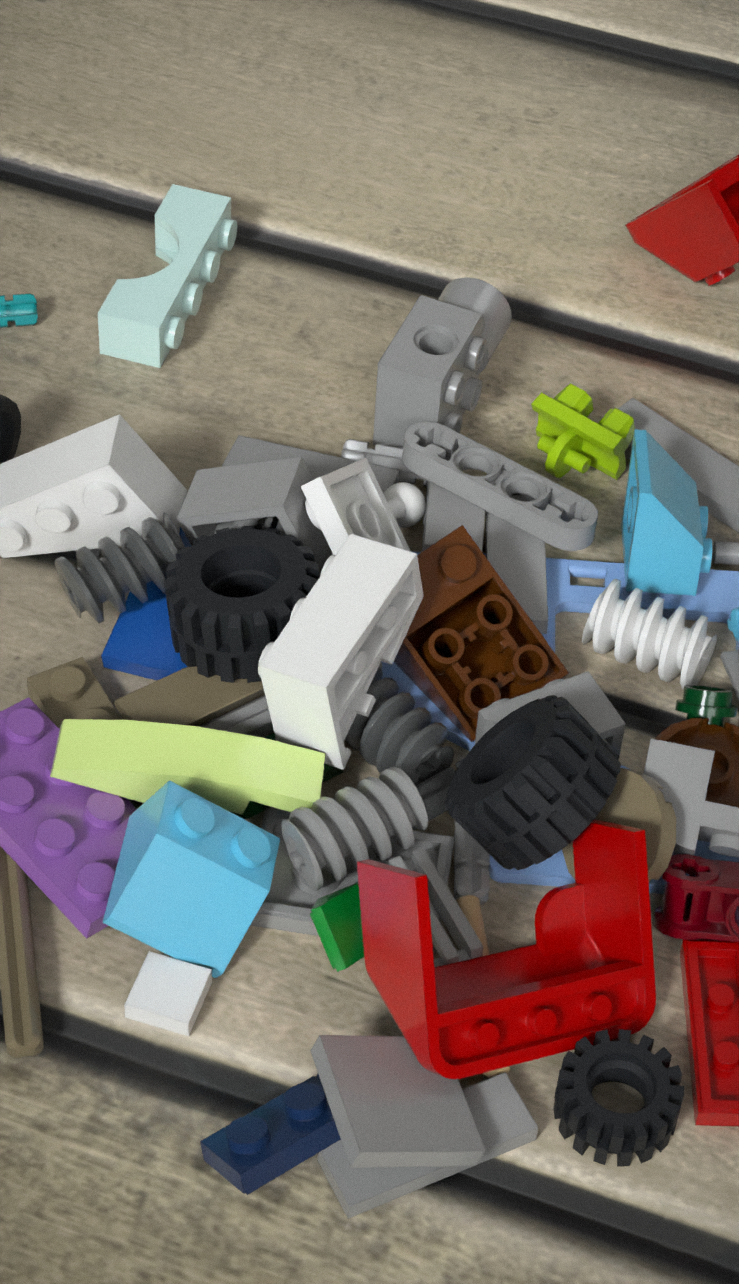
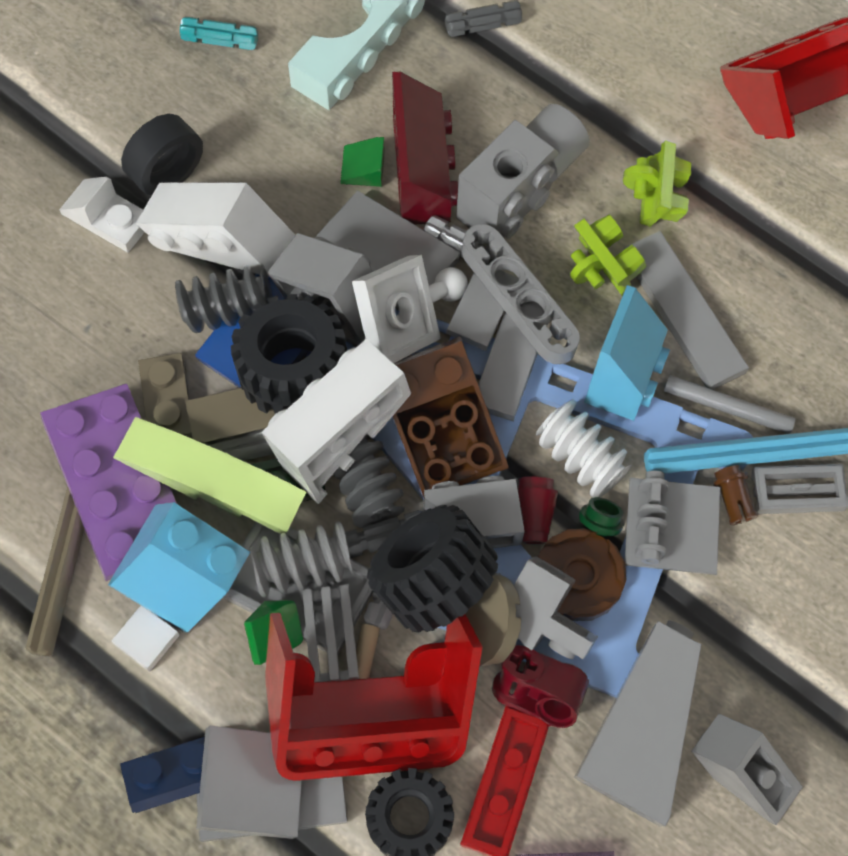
camera: 20 degrees right, 20 degrees up
(233, 406) = (363, 162): none -> green slope
(302, 372) = (422, 151): none -> dark red slope
(315, 234) = (483, 18): none -> dark grey axle
(610, 353) = (654, 181): none -> lime hips
(627, 700) = (537, 508): none -> dark red cone

